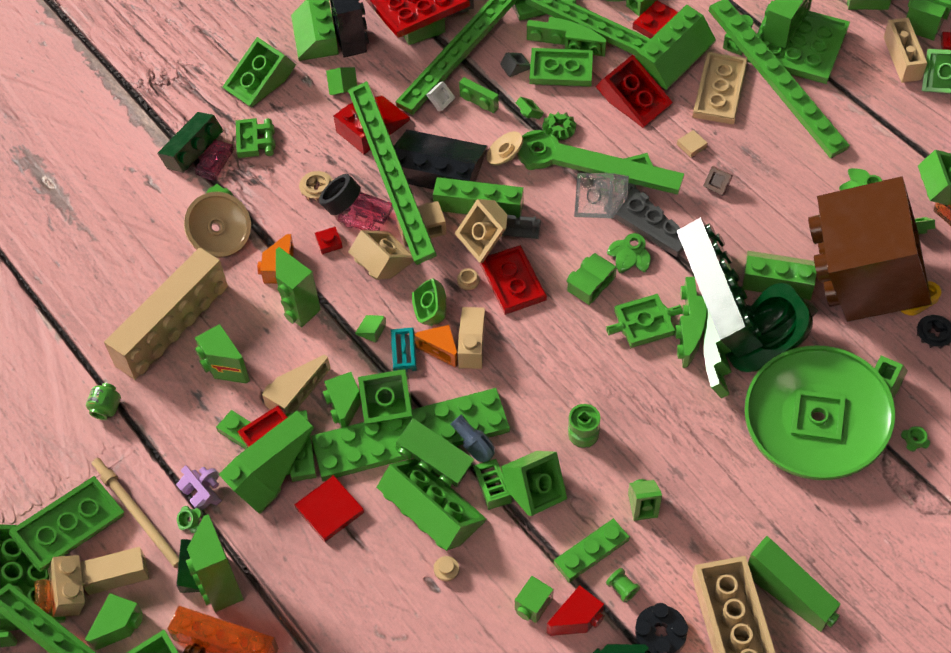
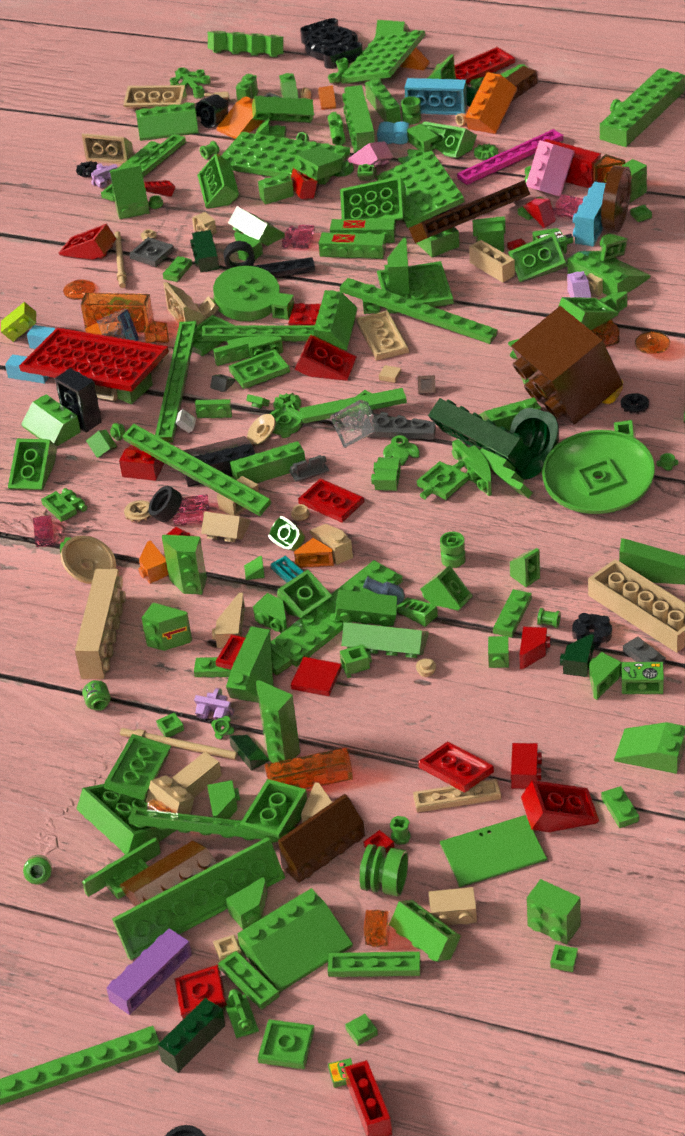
camera: 30 degrees left, 15 degrees down
(143, 483) = (170, 725): none -> bright green plate
(190, 142) = (18, 525): dark green brick -> none
(367, 73) = (117, 431): none -> bright green plate
(375, 508) = (355, 660): none -> bright green brick
(482, 228) = (290, 475): tan slope -> none

